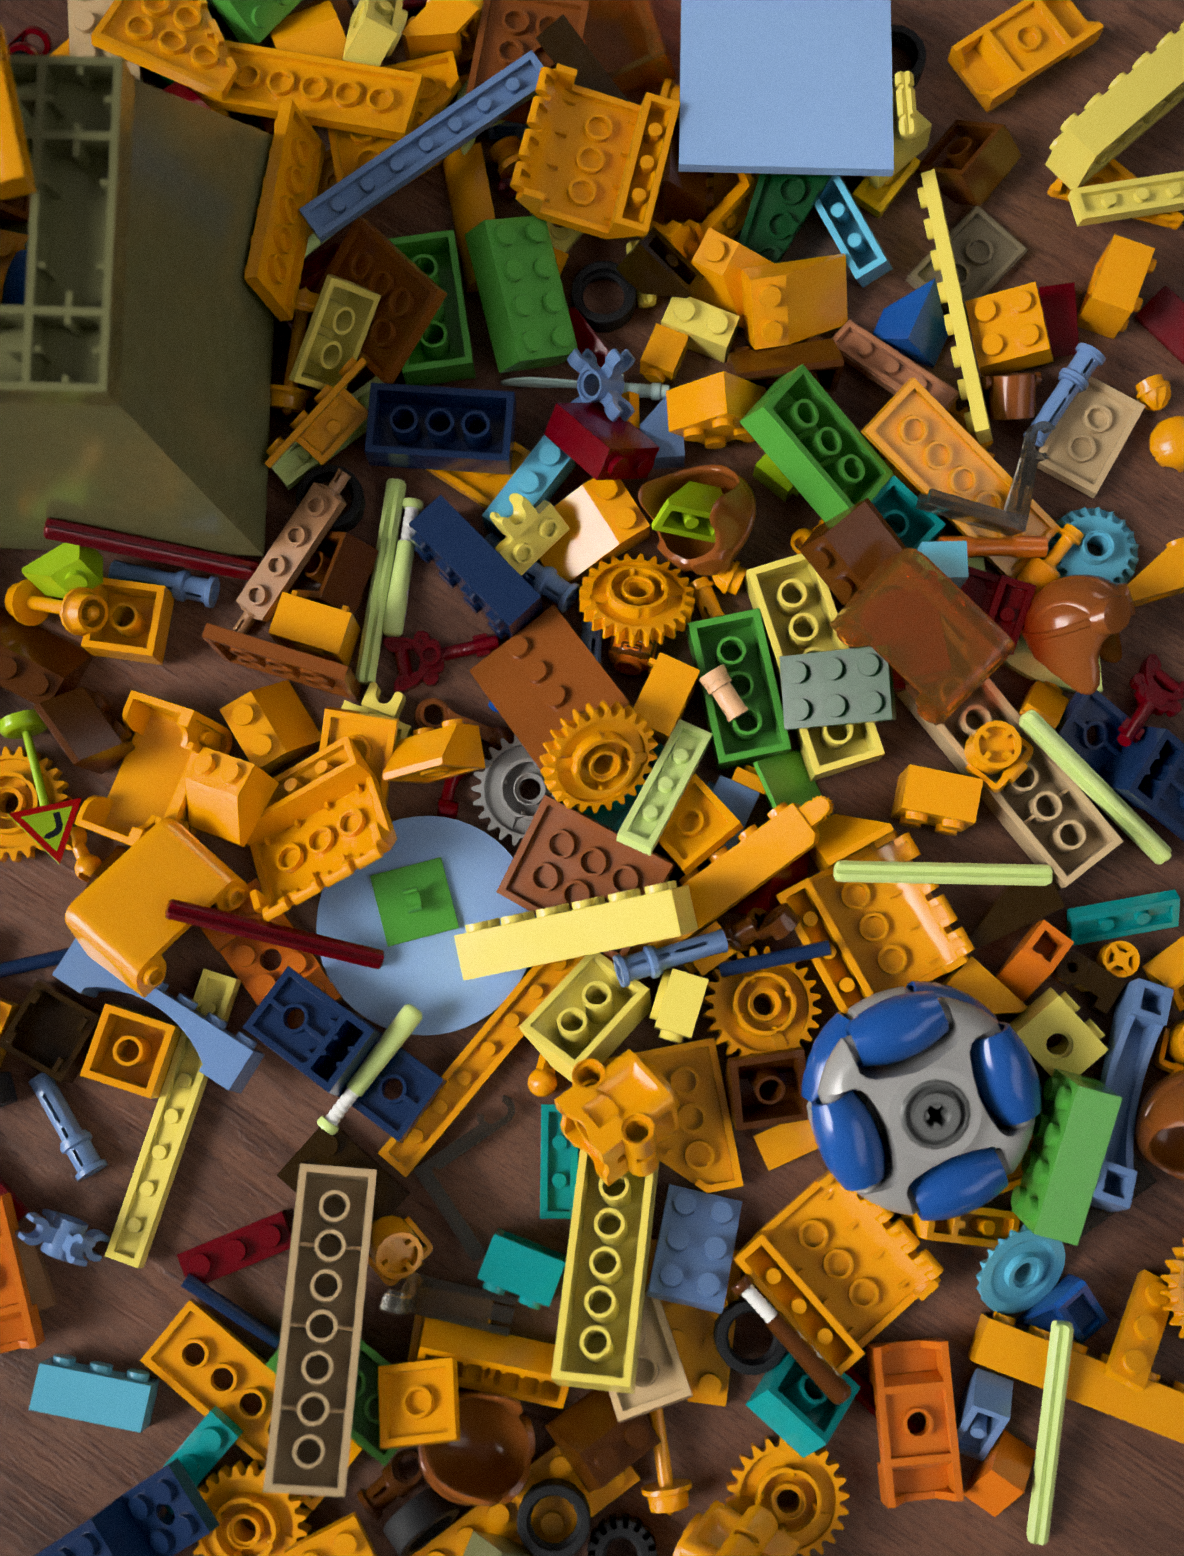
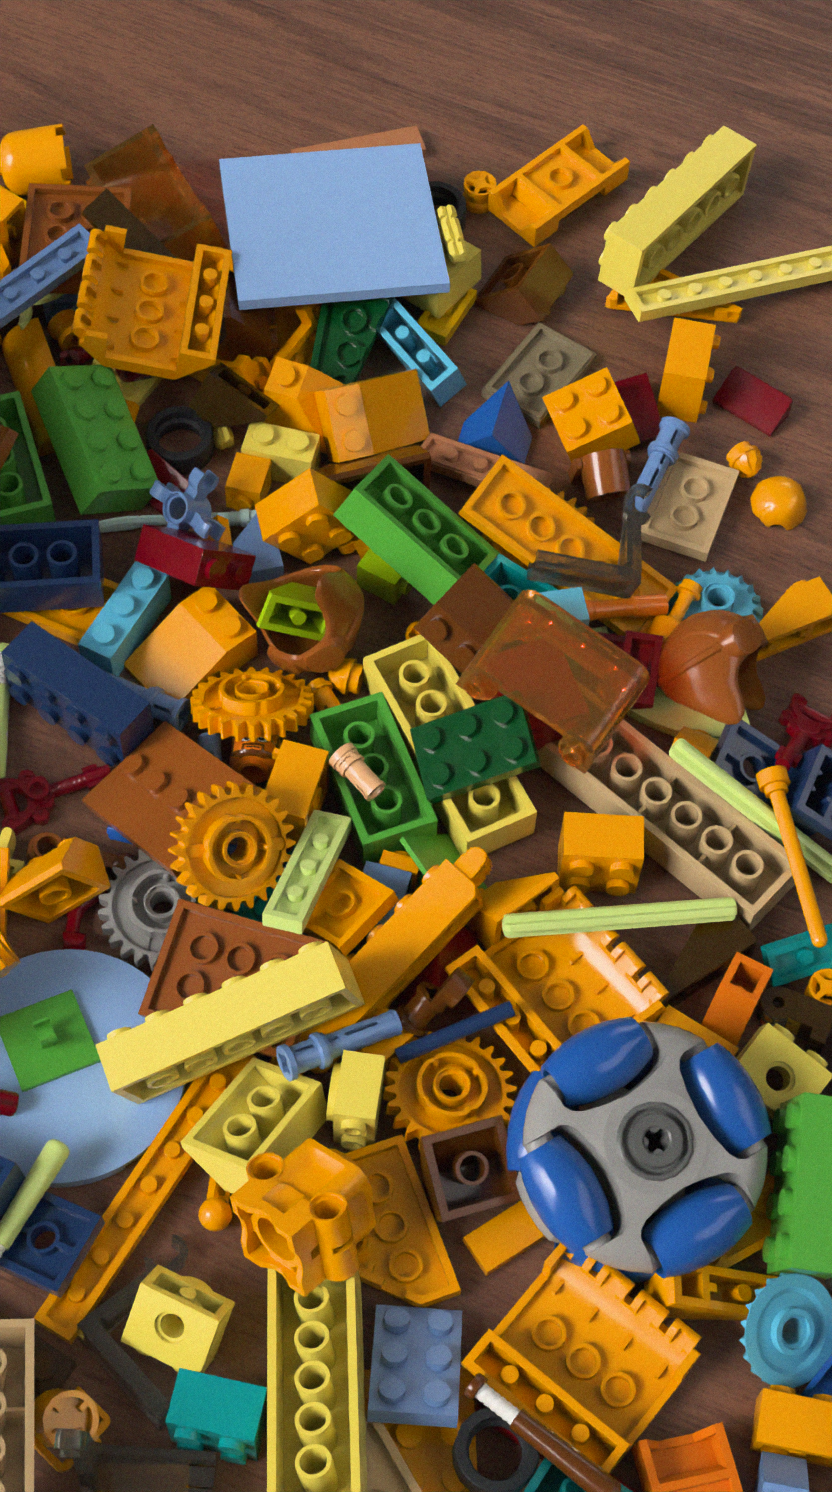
camera: 15 degrees left, 20 degrees down
(498, 1178) = (159, 1333): none -> light yellow brick
(528, 532) = (129, 648): light yellow plate -> none
(557, 1167) = (247, 1287): teal plate -> none
(941, 31) = (476, 190): none -> light orange wheel
(956, 321) = (536, 414): light yellow plate -> none
(993, 749) = (648, 790): light orange piece -> none
(1112, 763) = (775, 783): none -> light orange piece

